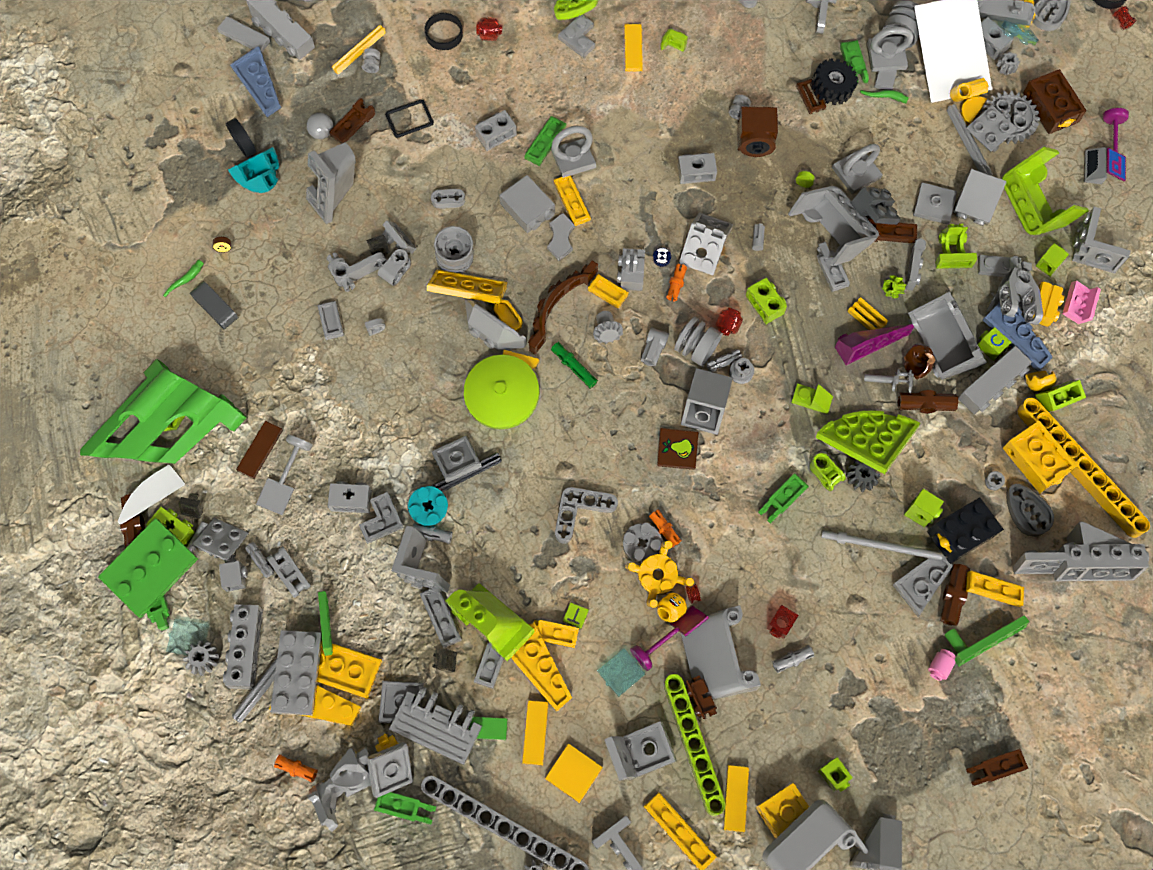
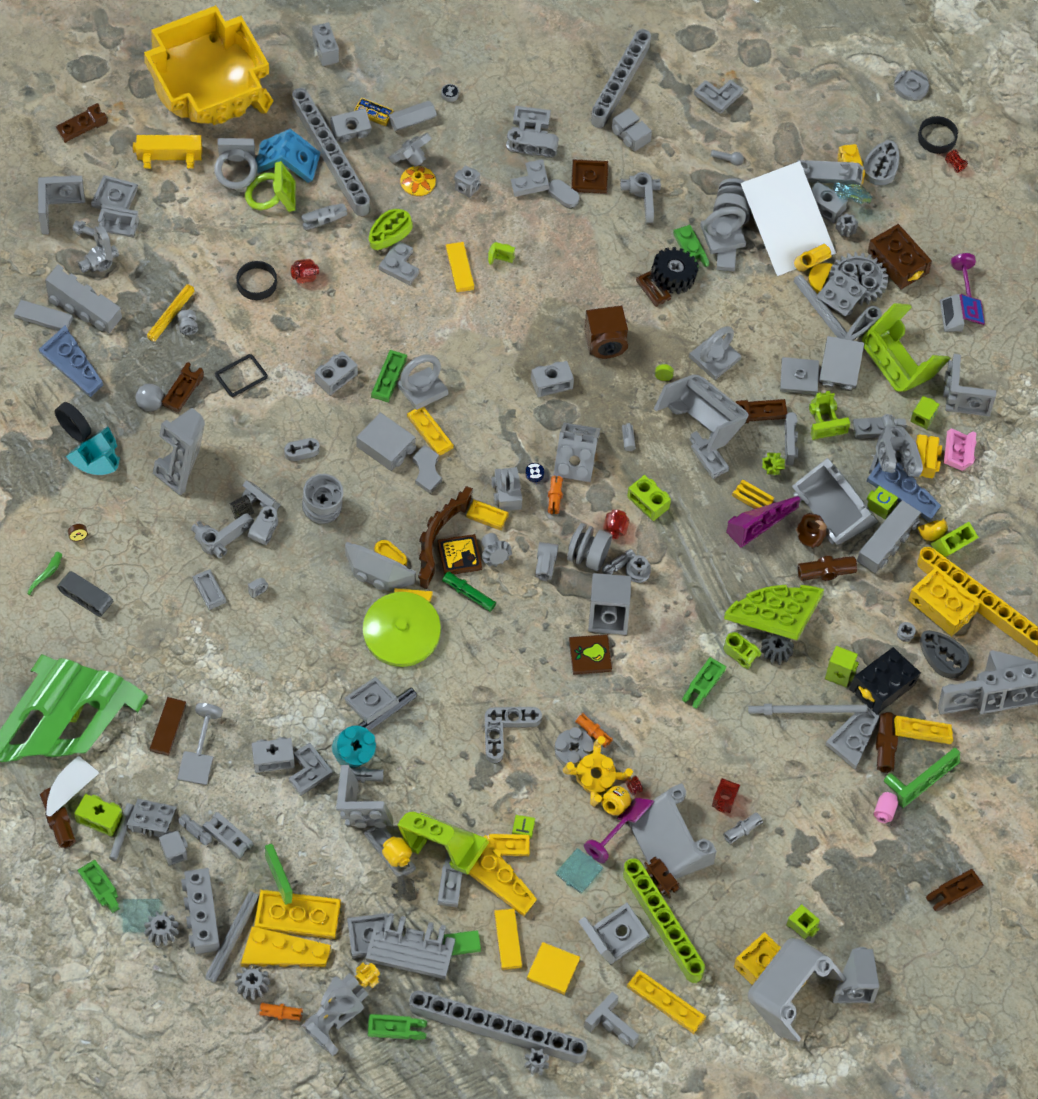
camera: 15 degrees left, 10 degrees down
(148, 568) = (88, 852): bright green plate -> none
(191, 506) = (113, 790): clear smoke tile -> none
(268, 738) = (252, 990): none -> light grey gear
(296, 673) = (261, 923): light grey plate -> none
(389, 769) = (376, 991): light grey plate -> none
(444, 623) = (396, 852): none -> yellow head
(467, 286) = (343, 532): yellow tile -> none
(573, 326) = (460, 554): none -> tile
(736, 798) = (714, 962): yellow tile -> none
(738, 102) = (581, 306): light grey wheel -> none
(811, 398) = (711, 584): lime slope -> none
(876, 204) = (740, 385): dark grey brick -> none
(891, 379) = (788, 553): light grey piece -> none
(898, 96) = (739, 274): bright green animal -> none
(1008, 161) = (864, 322): none -> light grey piece

